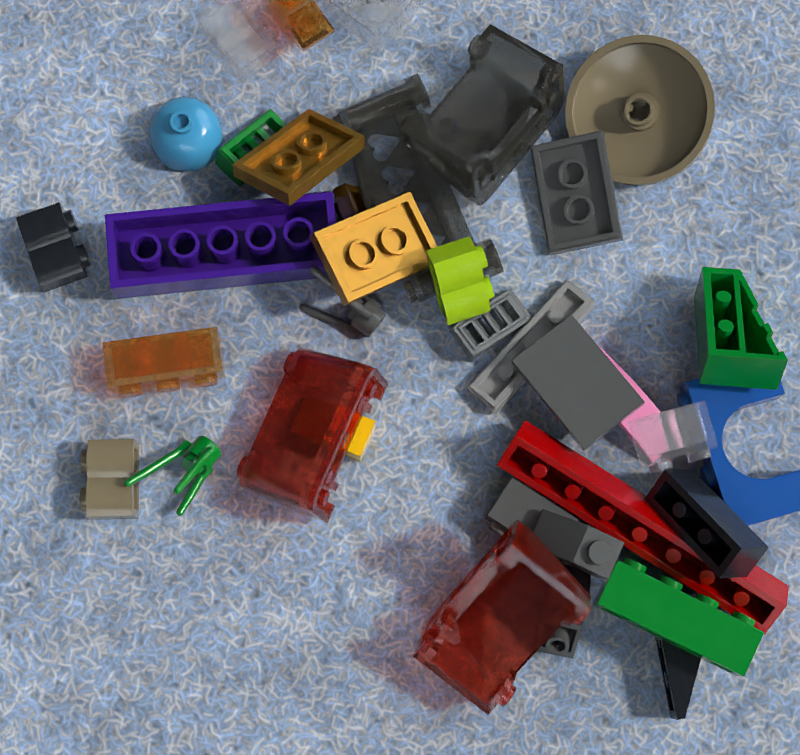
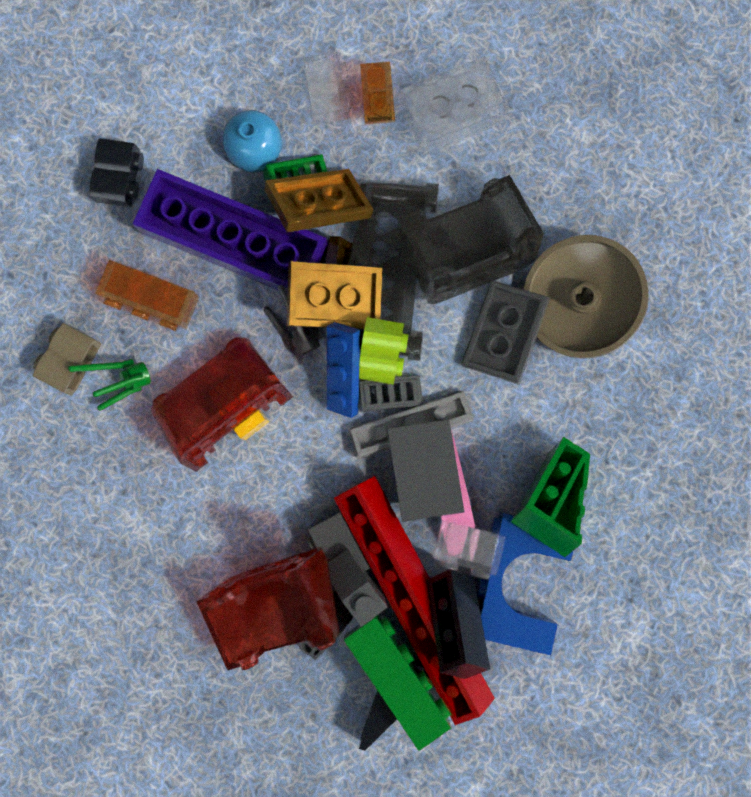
camera: 40 degrees right, 5 degrees up
(429, 322) = (343, 369): none -> blue plate

